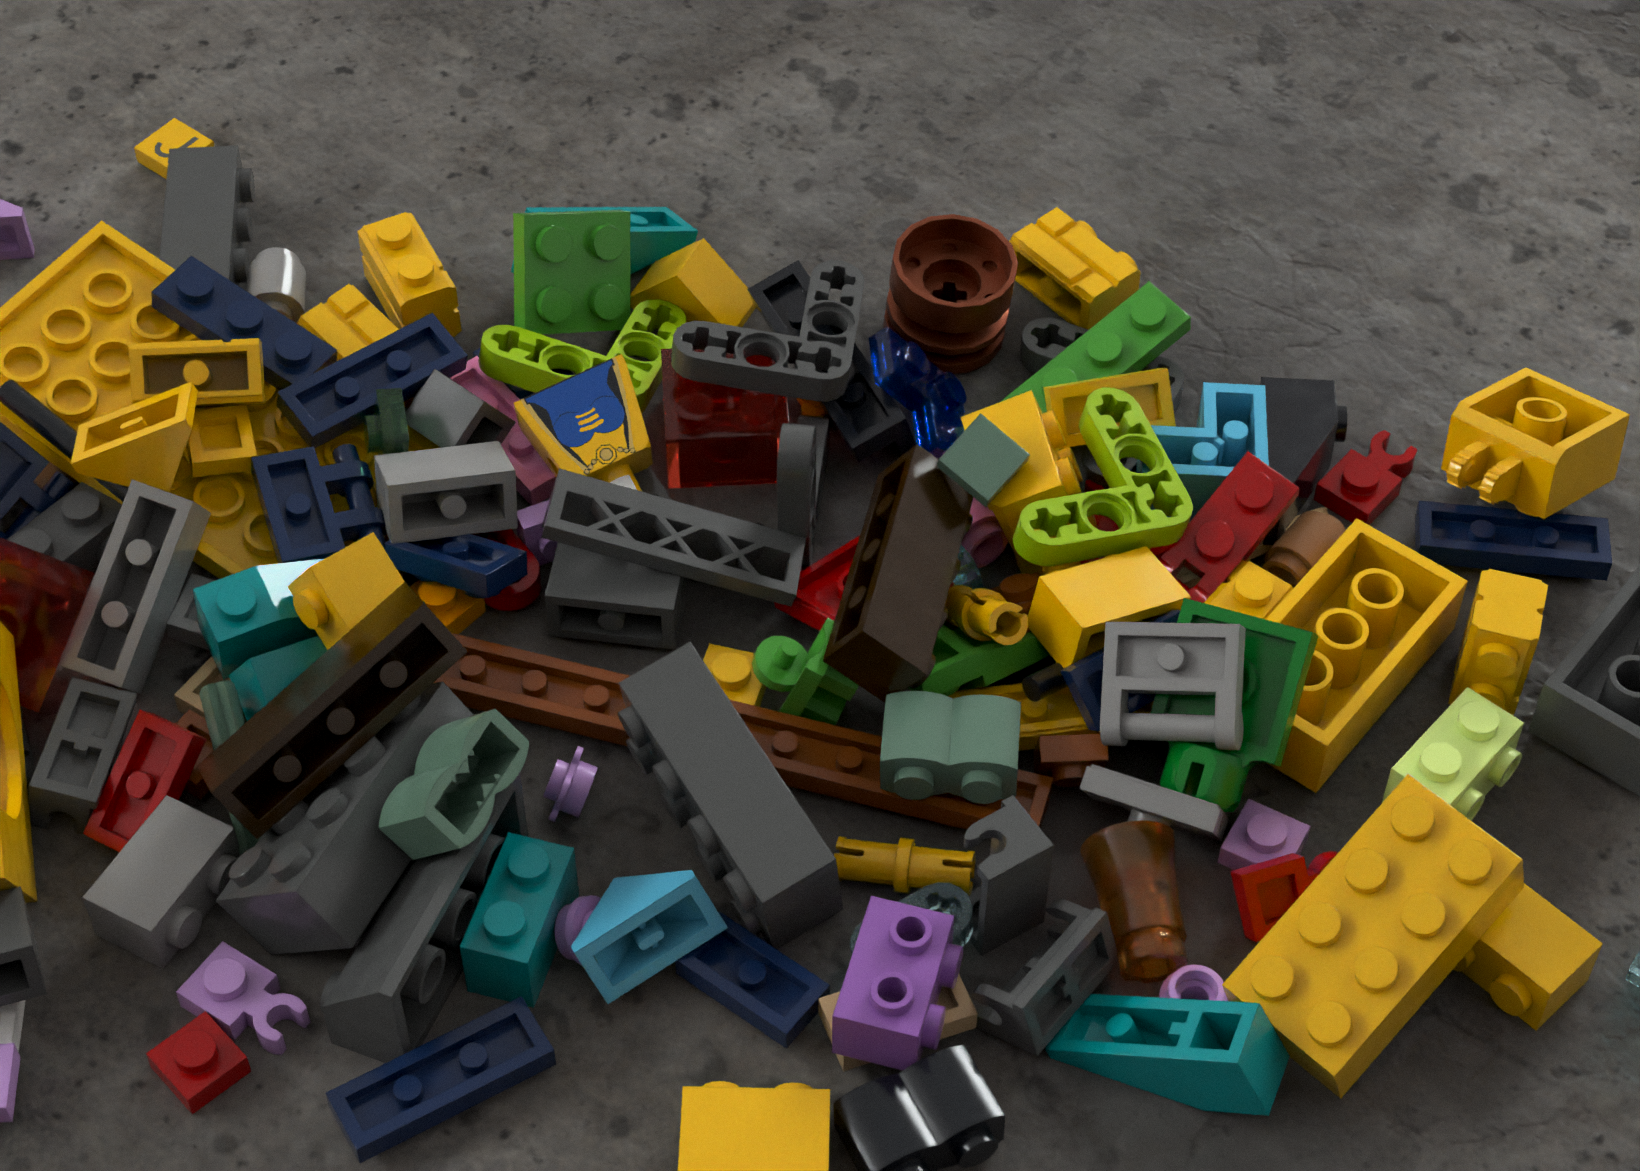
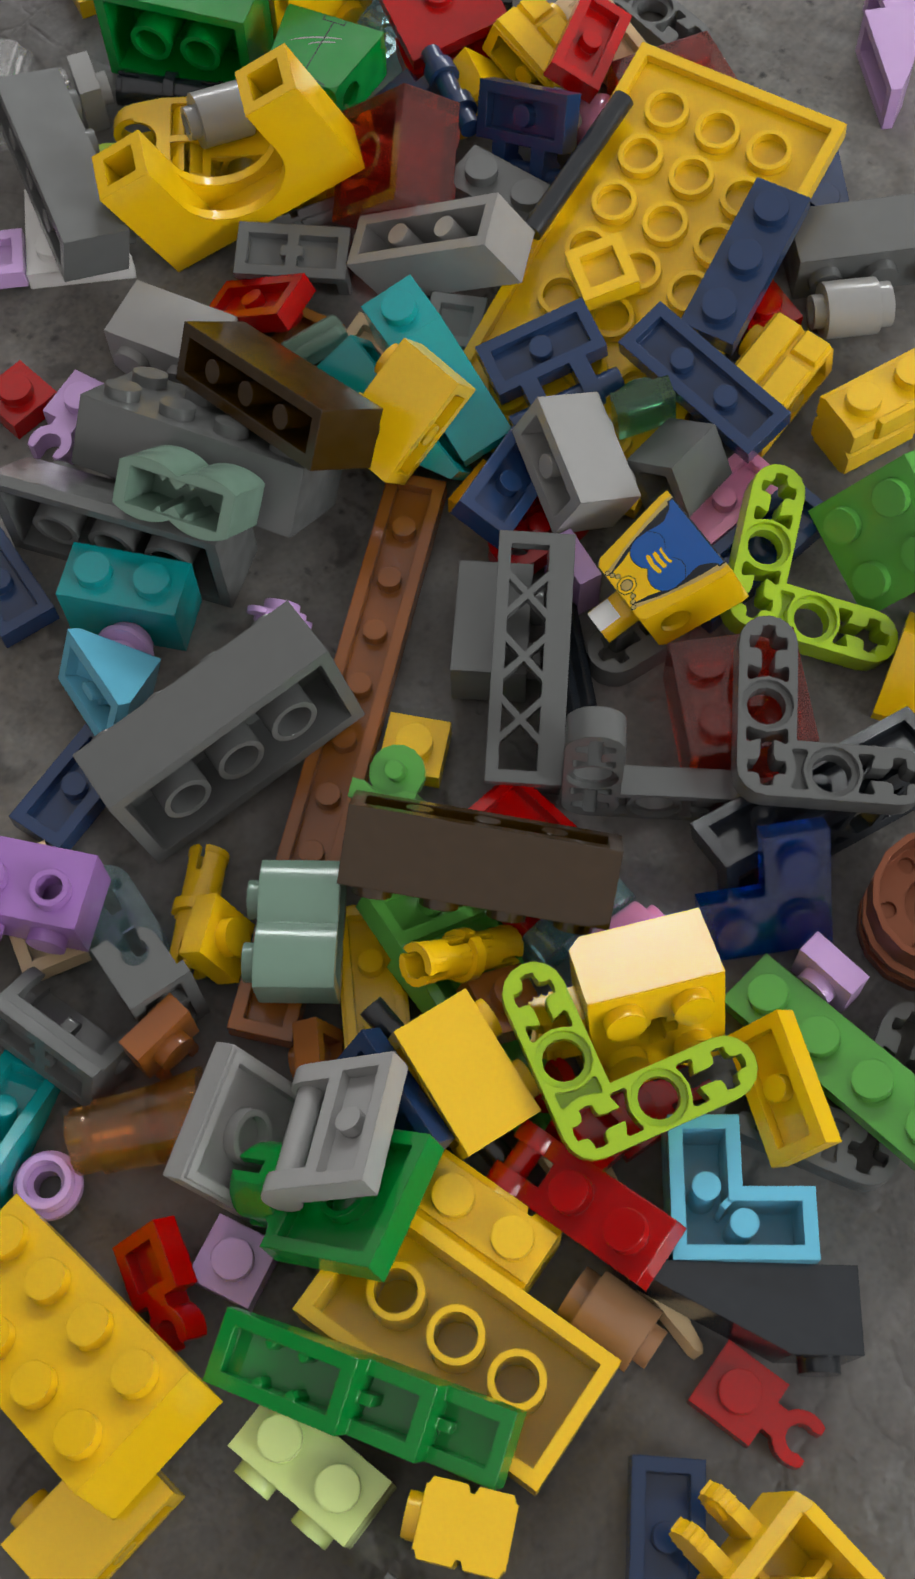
camera: 90 degrees right, 15 degrees up
(138, 440) = (568, 202): yellow slope -> none
(220, 370) = (655, 228): yellow brick -> none
(941, 827) = (216, 938): none -> yellow plate
(983, 460) = (611, 921): sand green tile -> none
(993, 377) = (829, 972): none -> lavender plate
(1072, 862) = (162, 1039): none -> dark orange plate
(1405, 682) = (365, 1397): none -> green slope

